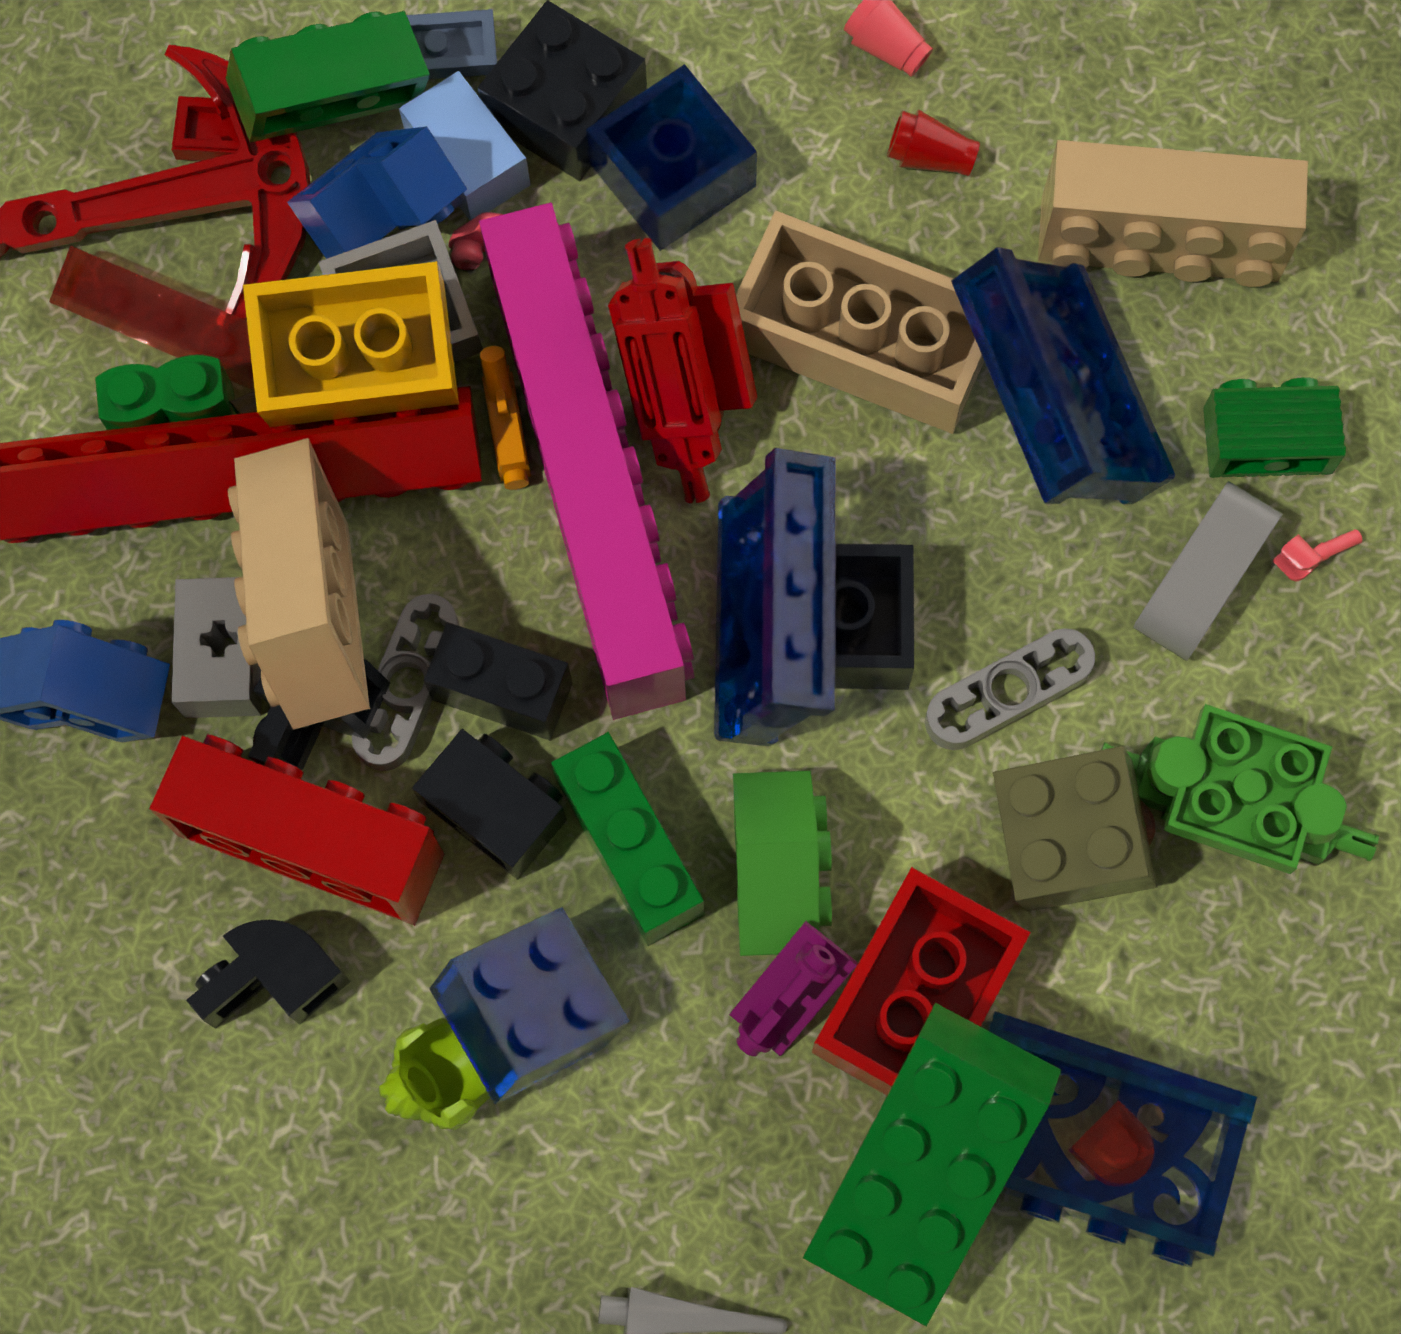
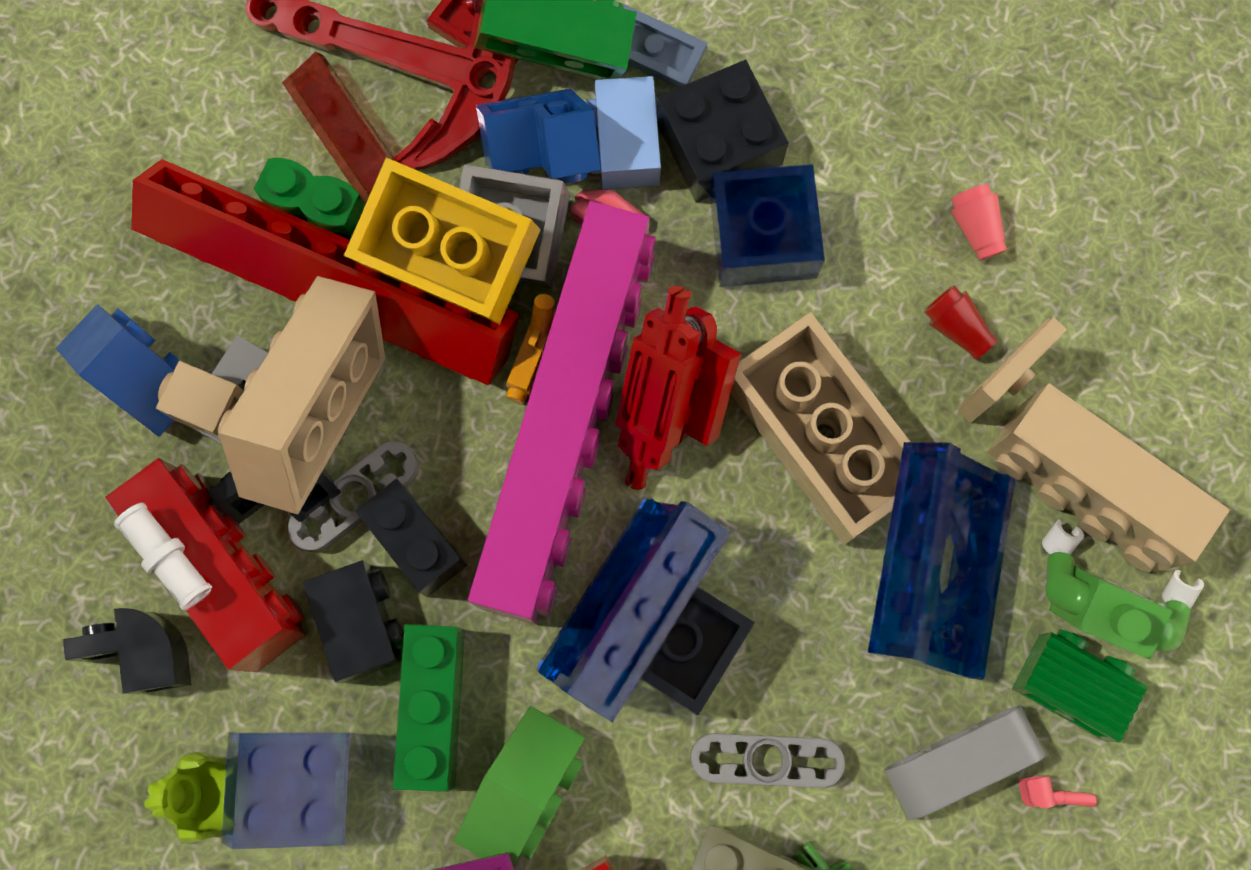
camera: 30 degrees right, 5 degrees up
(187, 659) = (197, 398): none -> tan brick
(256, 822) = (162, 556): none -> white pin
(1015, 158) = (1013, 371): none -> tan plate
(1256, 330) = (1110, 608): none -> bright green torso

